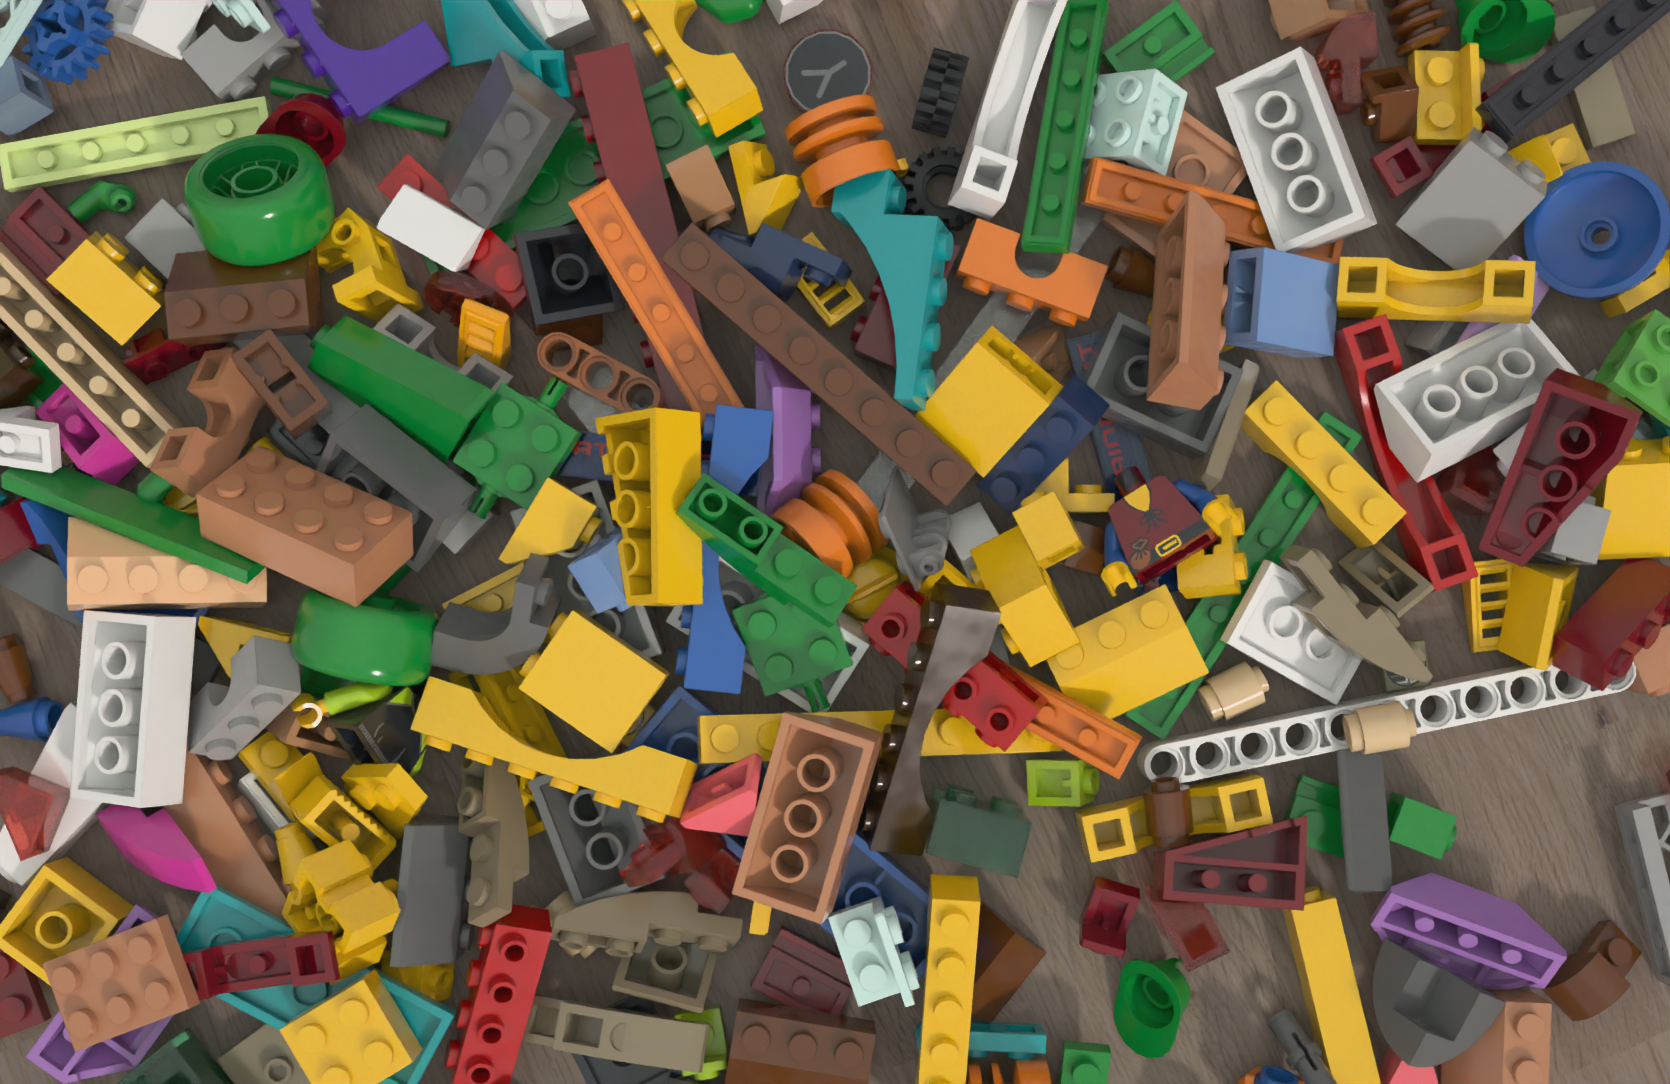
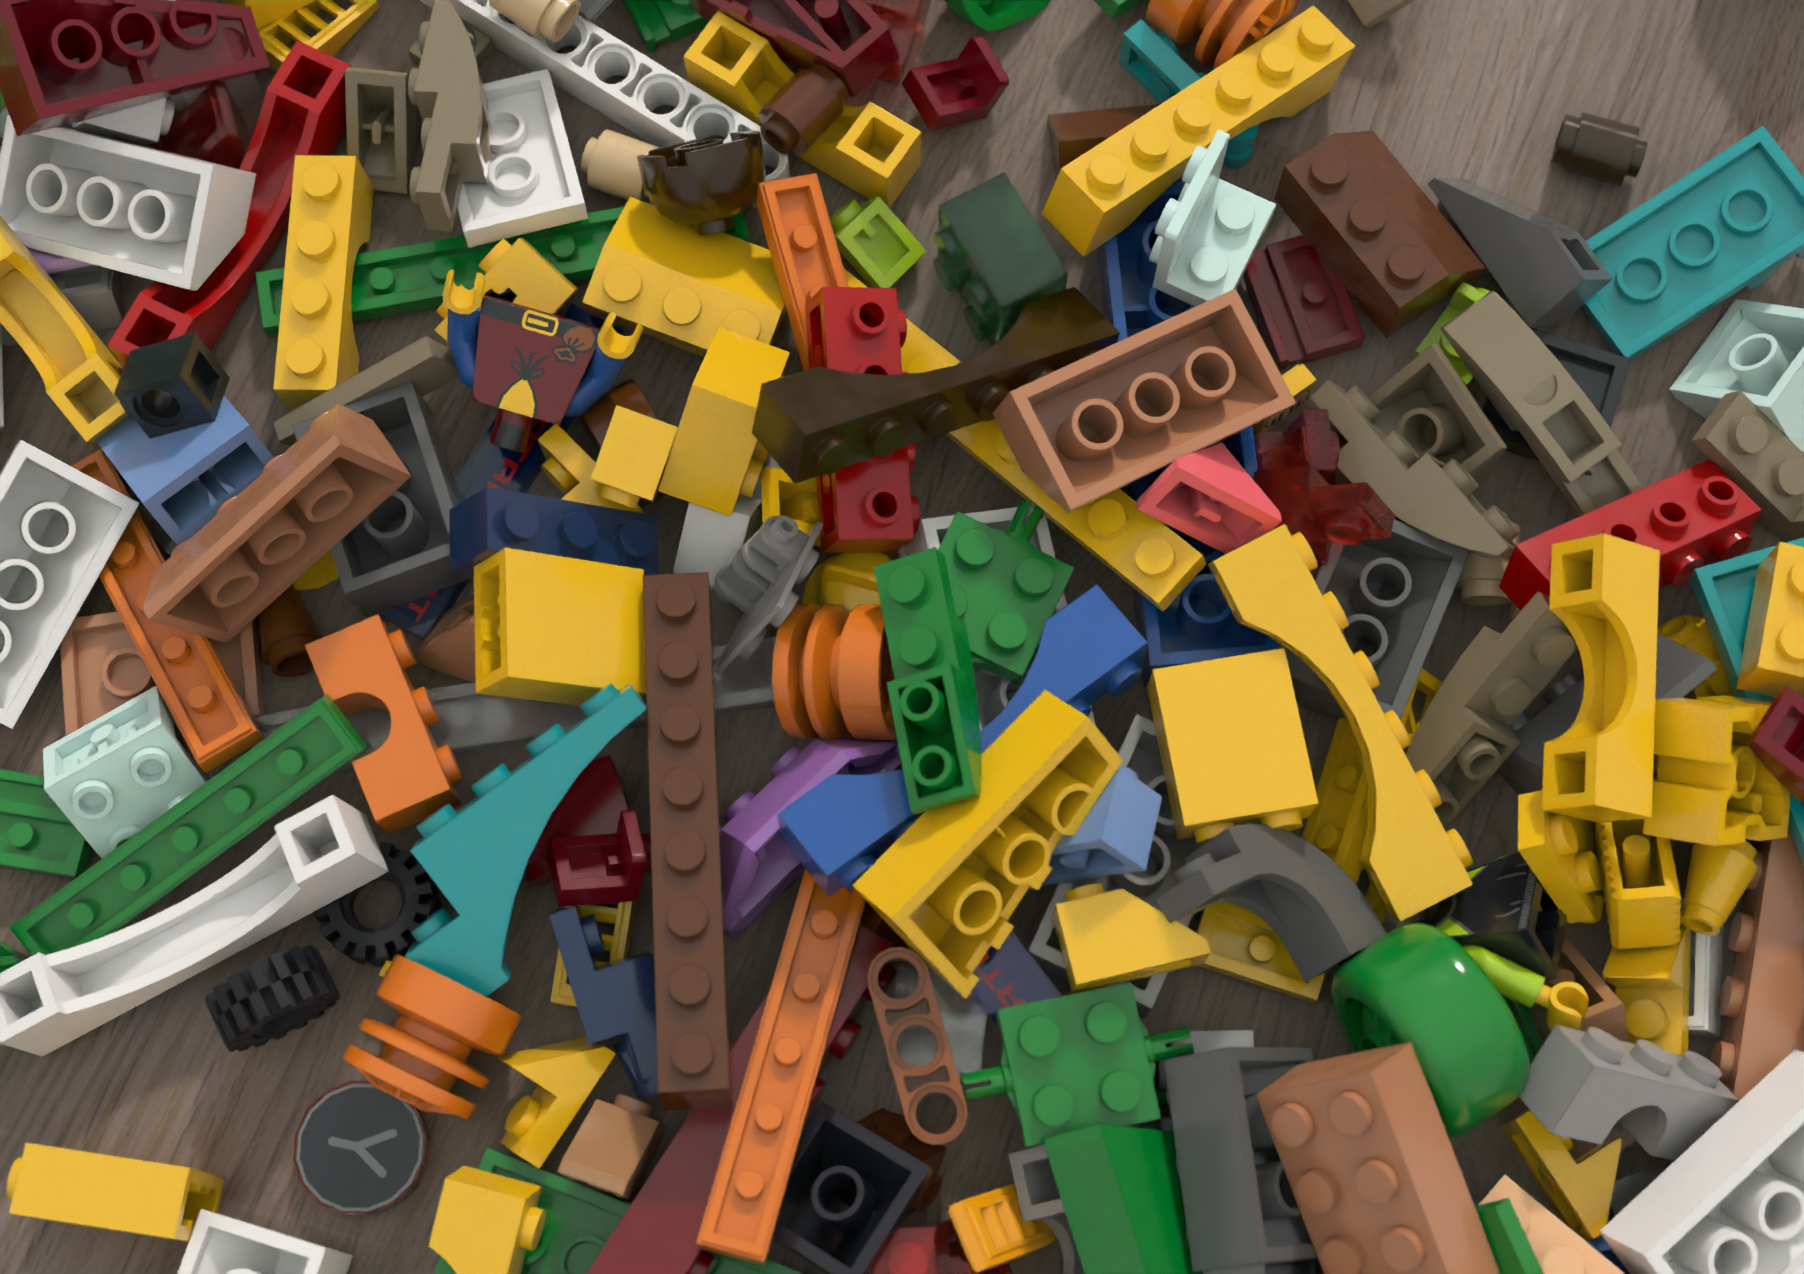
camera: 135 degrees left, 15 degrees down
(398, 857) = (1610, 605): none -> yellow arch
(847, 311) = (601, 865): none -> dark red bracket
(1175, 718) = (705, 179): none -> dark brown cylinder
(1323, 324) = (172, 385): none -> black brick

